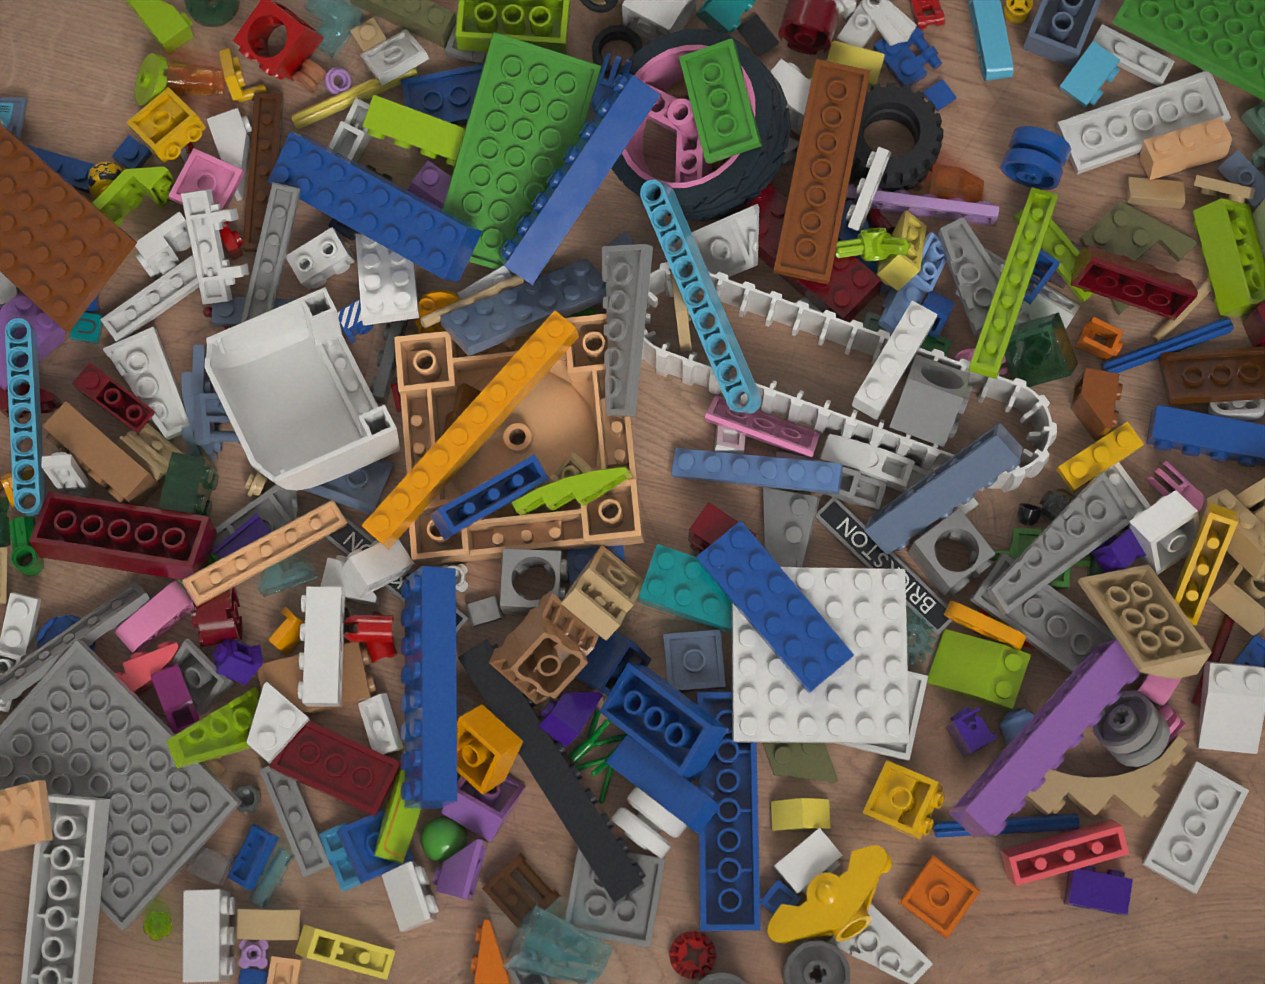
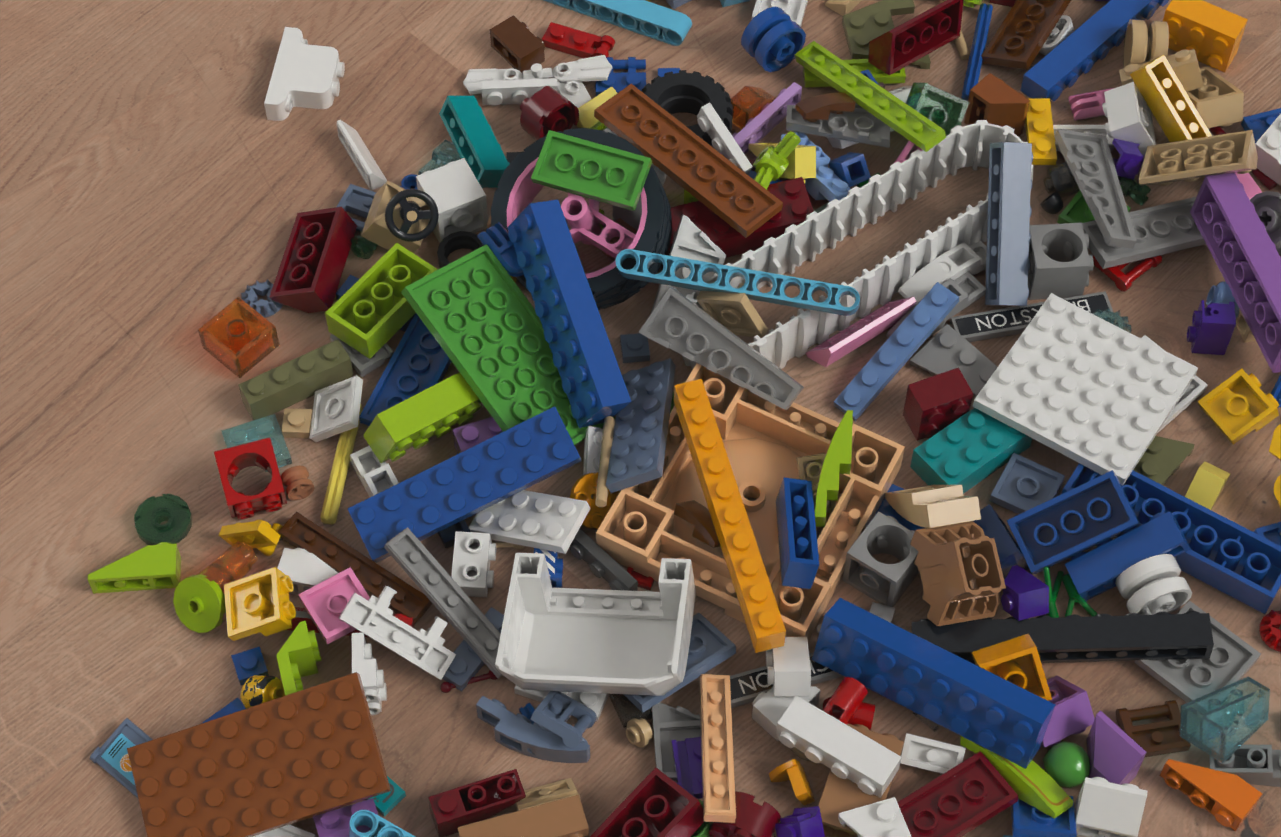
camera: 60 degrees left, 20 degrees down
(151, 379) = (461, 761): white wing -> none
(152, 300) = (403, 721): white plate -> none
(188, 436) = (561, 764): sand blue tile -> none
(189, 485) = (604, 777): clear green brick -> none
(277, 579) = (744, 754): clear light blue slope -> none
(343, 75) = (319, 464): lavender plate -> none
(728, 441) = (854, 361): white plate -> none
(774, 606) = (1030, 386): blue plate -> none
(808, 860) = (1251, 498): white brick -> none
(894, 360) = (886, 188): white brick -> none
(931, 401) = (931, 189): light grey brick -> none
(969, 245) = (820, 106): none -> reddish brown slope
(978, 669) = (1162, 298): lime slope -> none
(985, 625) = (1130, 271): light orange beam -> none
(1103, 330) = (947, 79): orange window -> none

